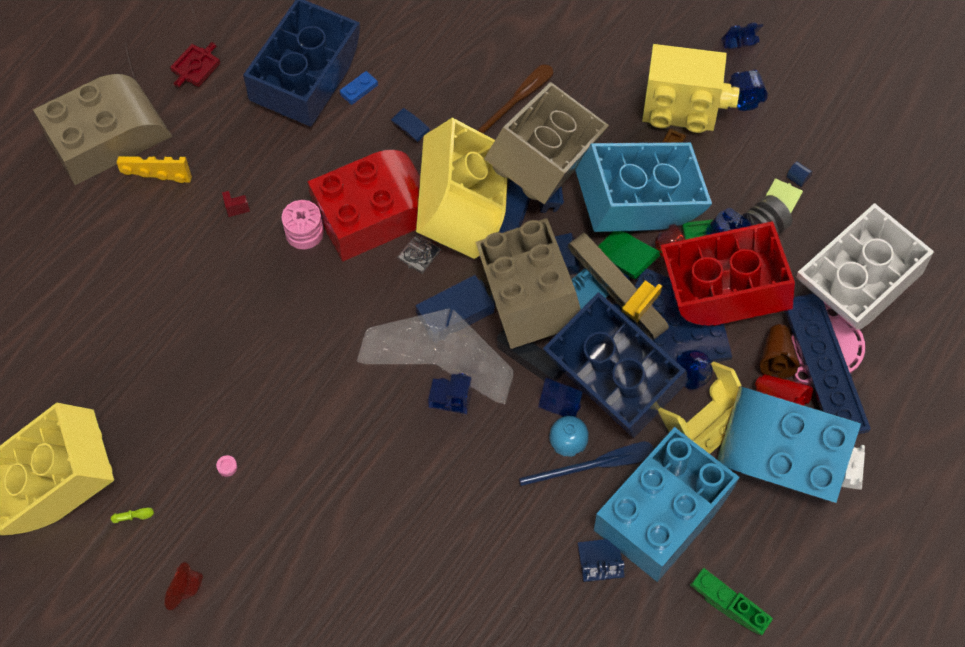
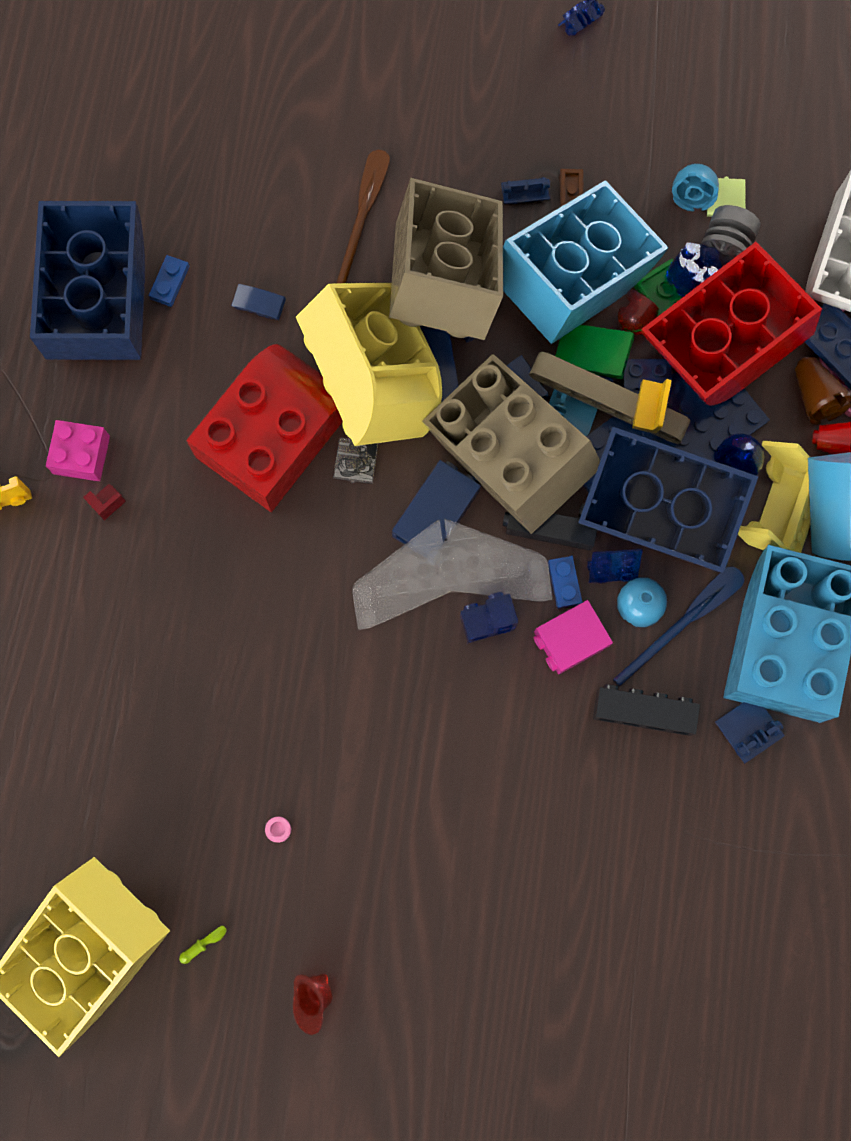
camera: 30 degrees left, 15 degrees up
(236, 164) = (77, 450): none -> dark pink brick
(302, 224) = (209, 502): bright pink wheel -> none
(503, 435) = (572, 637): none -> dark pink brick
(520, 398) = (564, 582): none -> blue plate
(529, 509) = (646, 711): none -> black brick
(636, 132) = (525, 190): none -> dark blue hinge
(687, 88) = (564, 111): light yellow brick -> none
(751, 89) = (626, 80): clear blue brick -> none
(759, 178) = (695, 187): none -> dark azure cylinder
(799, 173) = (732, 160): dark blue brick -> none

